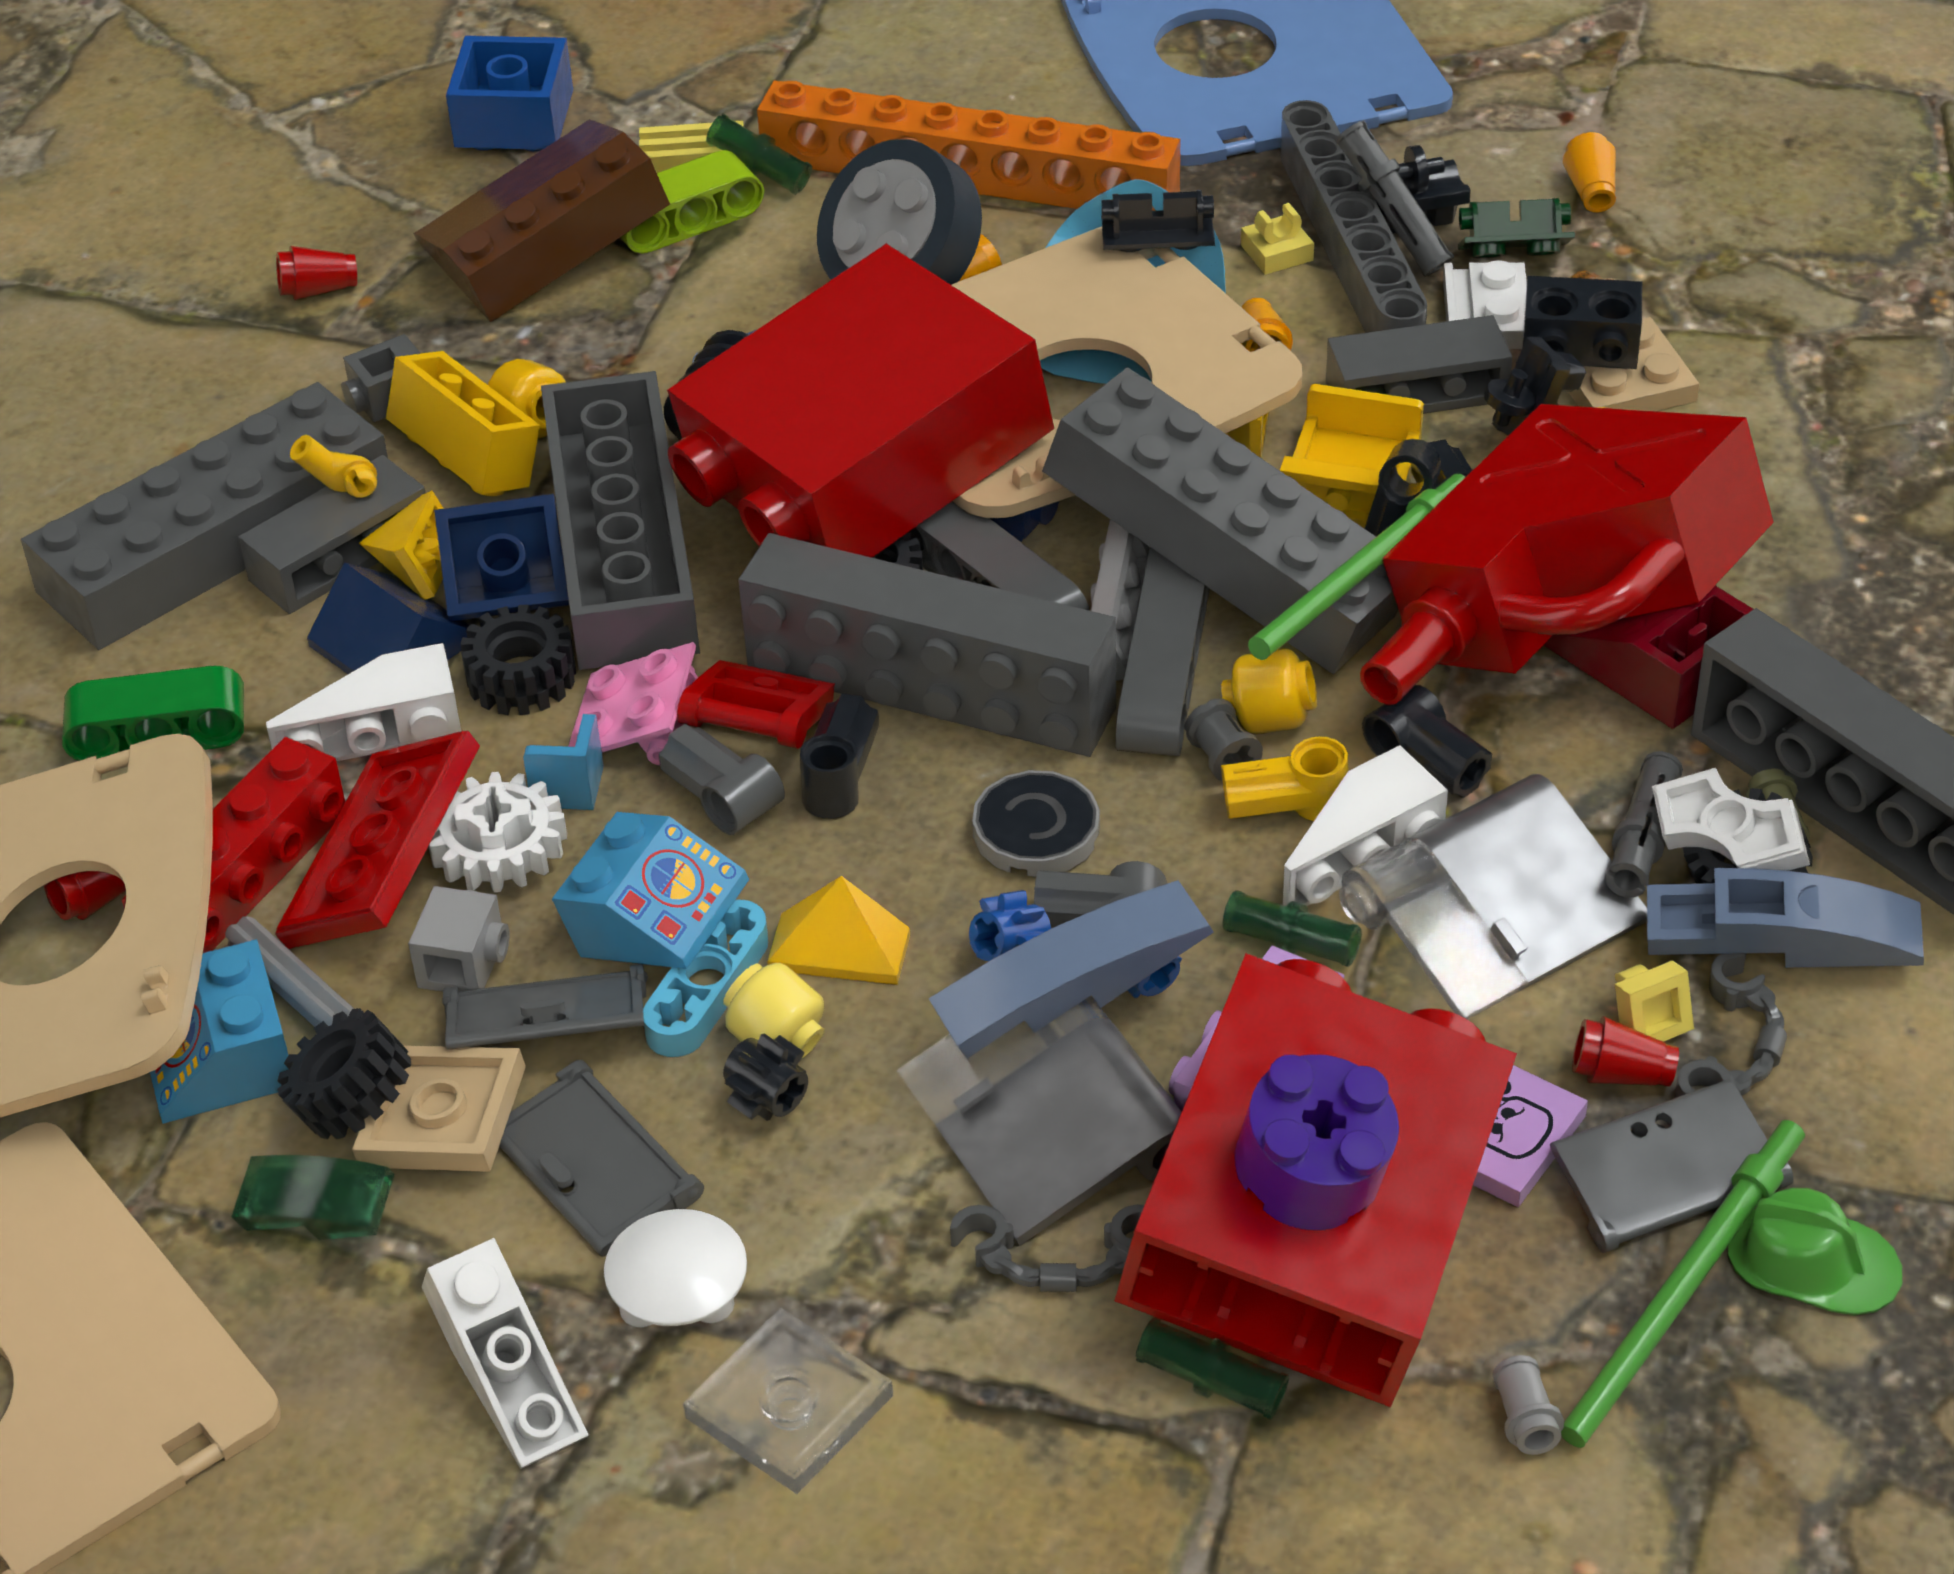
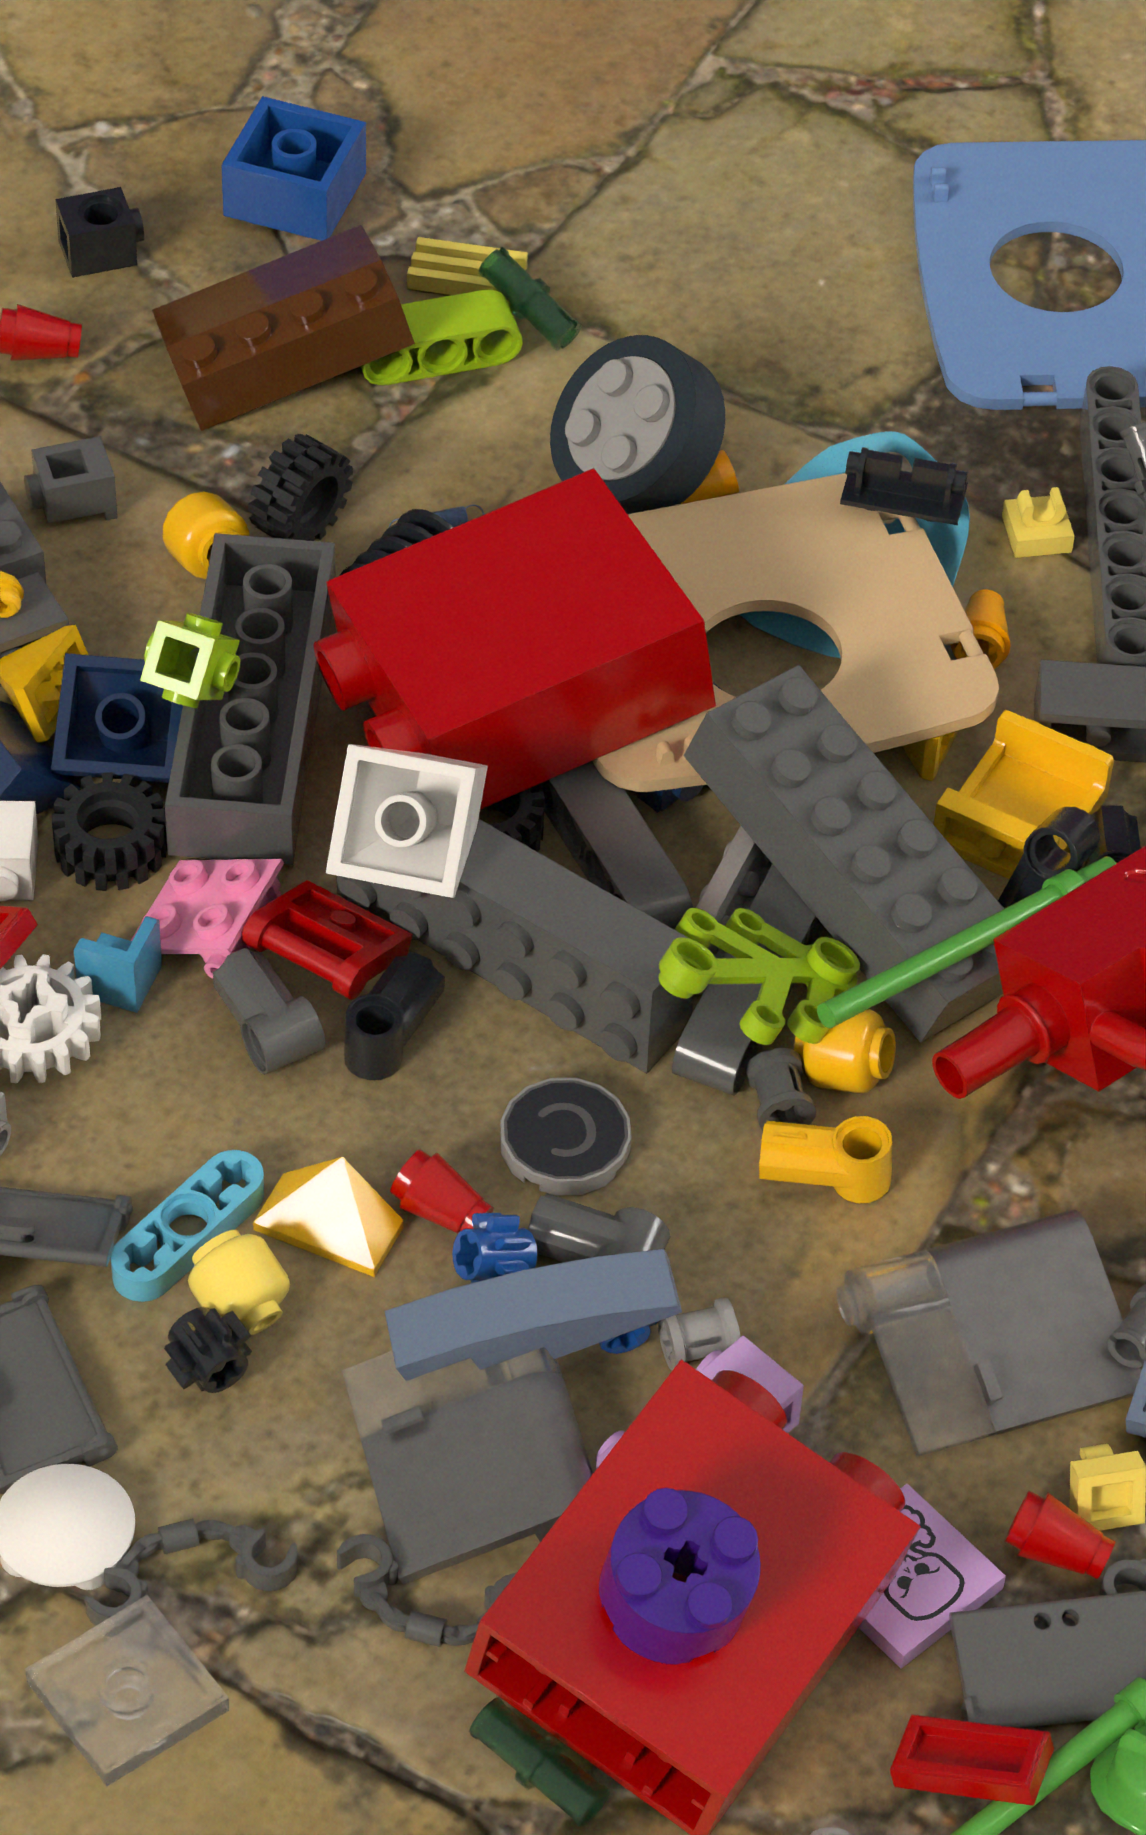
camera: 10 degrees right, 5 degrees up
(344, 178) = (98, 231): none -> black brick
(462, 422) = (129, 548): yellow brick -> none
(540, 477) = (172, 657): none -> lime brick
(605, 336) = (300, 490): none -> black tyre
(647, 892) = (154, 1124): dark azure slope -> none
(798, 1248) = (186, 1535): none -> dark grey piece
(810, 565) = (405, 819): none -> white slope
(935, 895) = (437, 1192): none -> red cone
(999, 151) = (750, 341): orange brick -> none
(1219, 960) = (698, 1332): none -> light grey bush
(1229, 624) = (824, 967): none -> lime plant
(1292, 928) = (779, 1316): clear green pin -> none
(1365, 815) = (893, 1213): white slope -> none
(1423, 731) = (985, 1140): black piece -> none
(1621, 1265) = (972, 1759): none -> red tile

